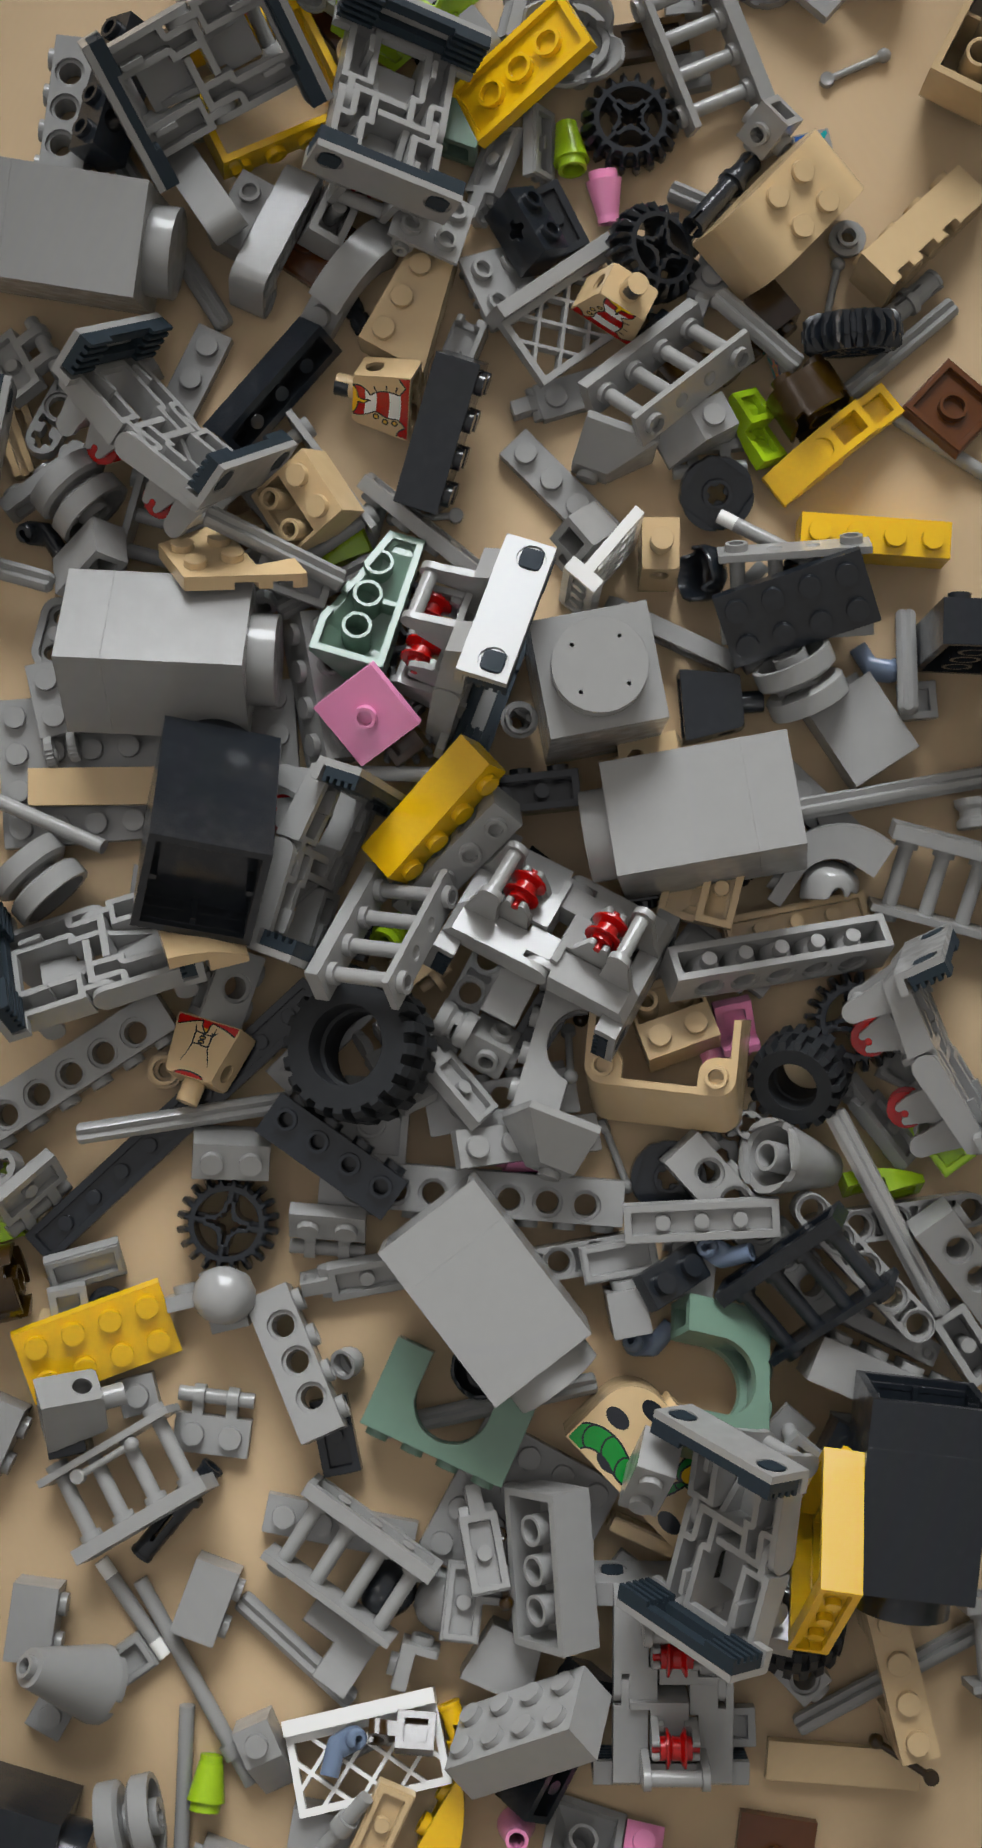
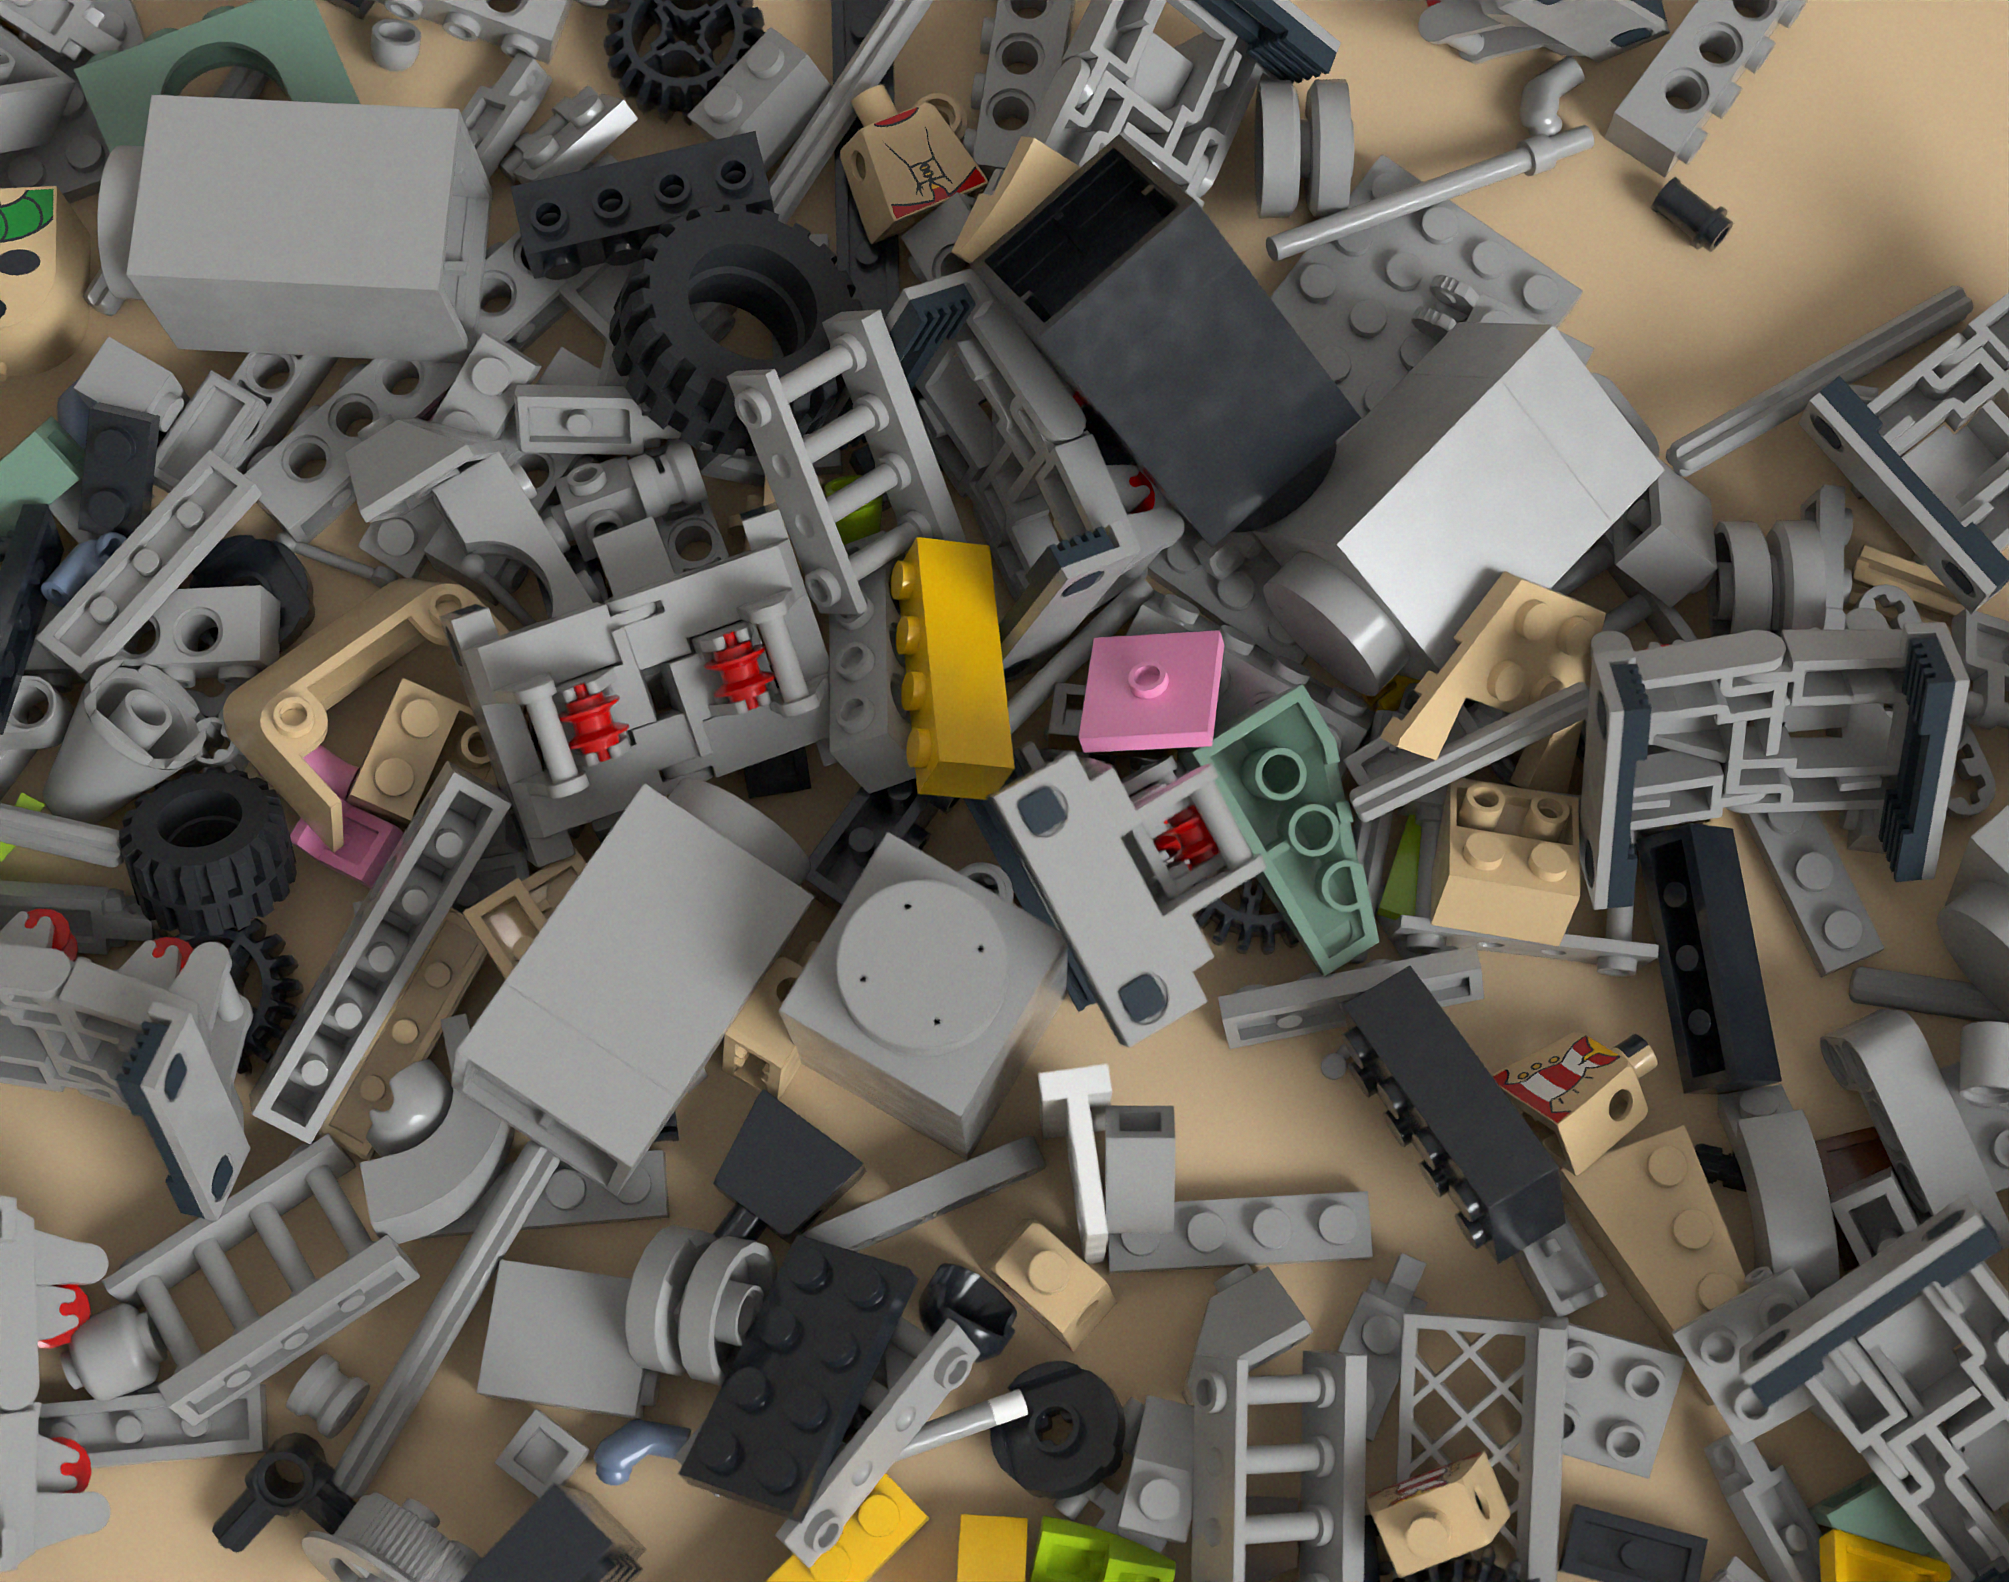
camera: 135 degrees right, 10 degrees down
(41, 535) = (1770, 505): black arm -> none
(89, 786) = (1376, 297): tan tile -> none
(526, 231) = (1648, 1490): black brick -> none
(906, 662) = (603, 1483): light grey axle -> none

